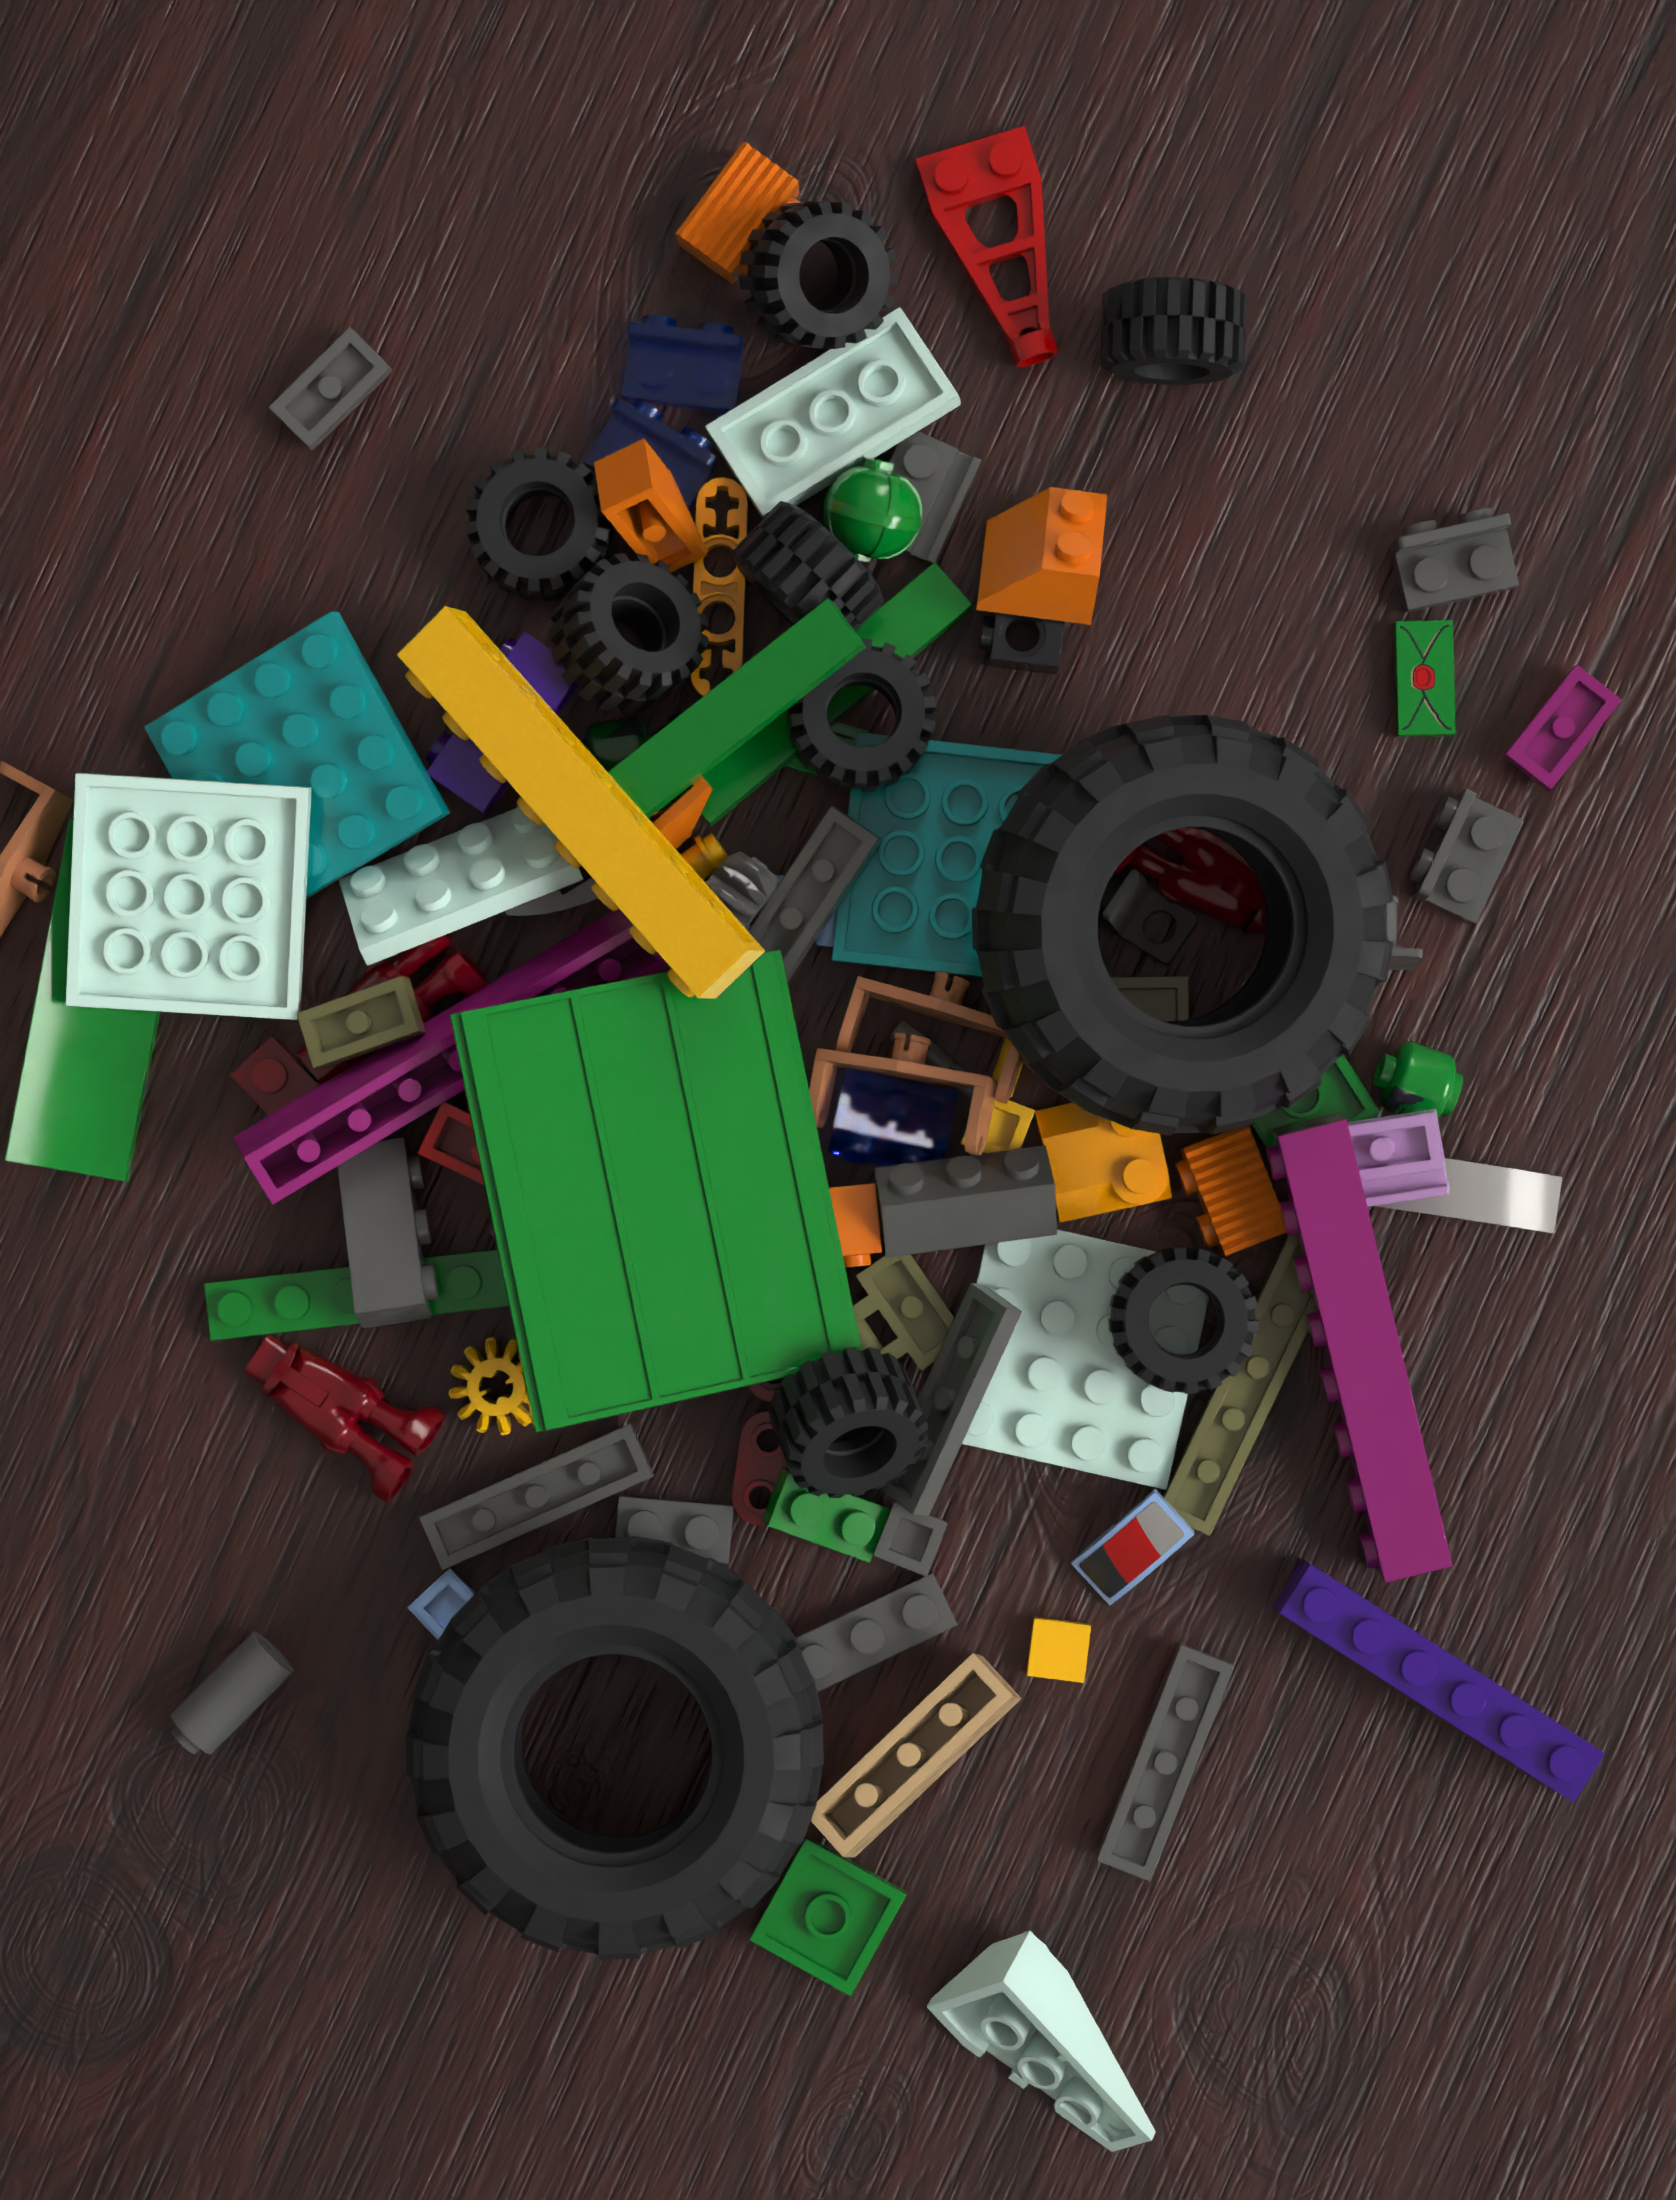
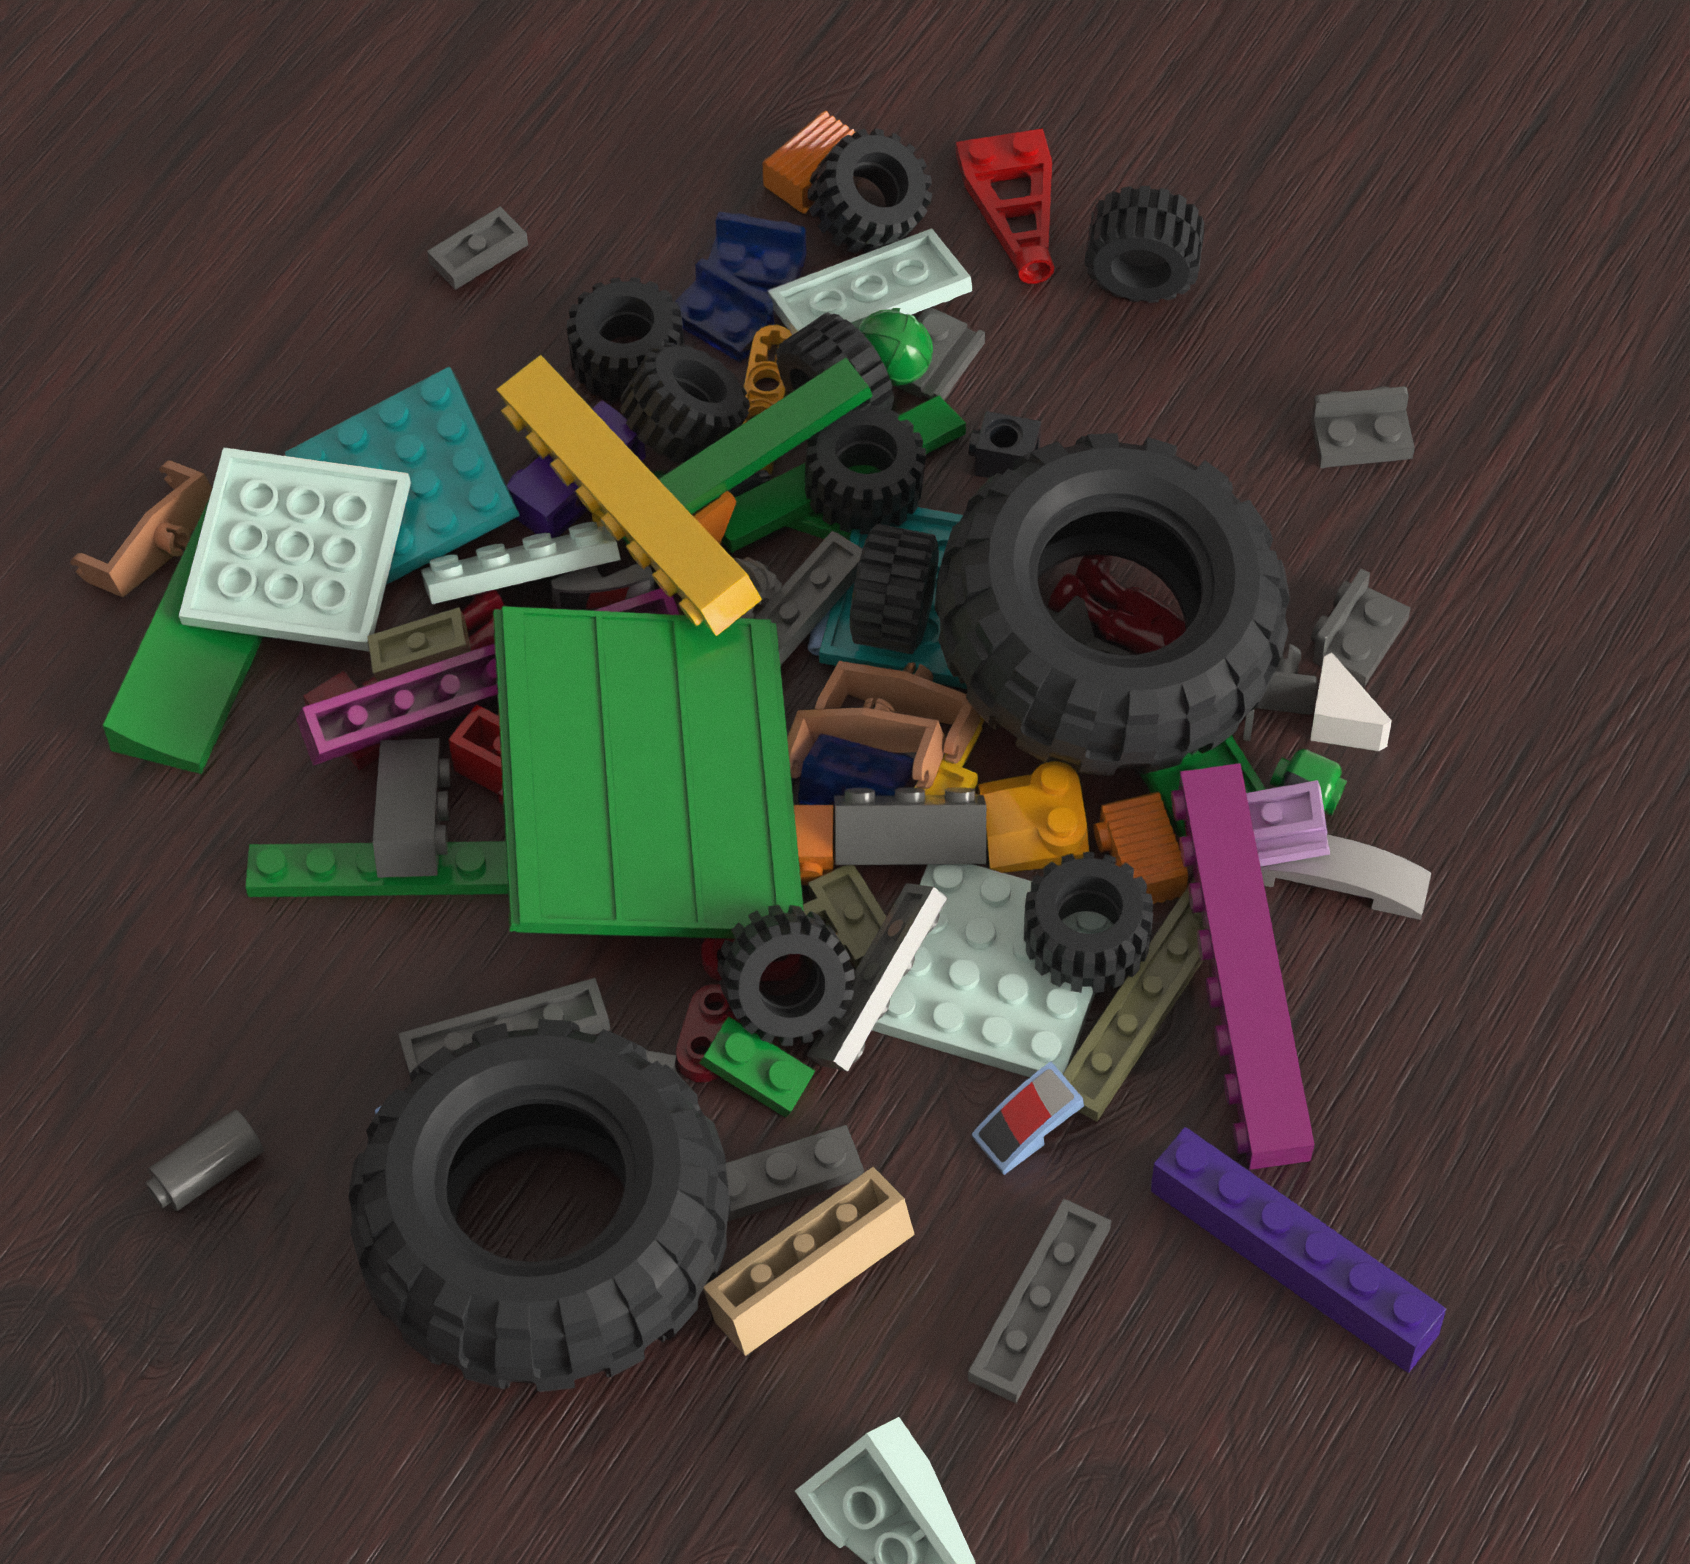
camera: 10 degrees right, 30 degrees down
(332, 1400) = (339, 938): dark red piece -> none
(478, 1395) = (482, 942): yellow gear -> none
(647, 506) = (714, 324): orange slope -> none
(828, 1915) = (713, 1401): green plate -> none
(910, 1539) = (829, 1094): dark grey plate -> none
(918, 904) = (894, 588): none -> black tyre
(1045, 557) = (1033, 385): orange slope -> none
(1058, 1649) = (952, 1202): yellow tile -> none
(1424, 678) = (1332, 508): green tile -> none
(1452, 975) = (1346, 711): none -> white slope
(1562, 728) = (1445, 546): magenta plate -> none

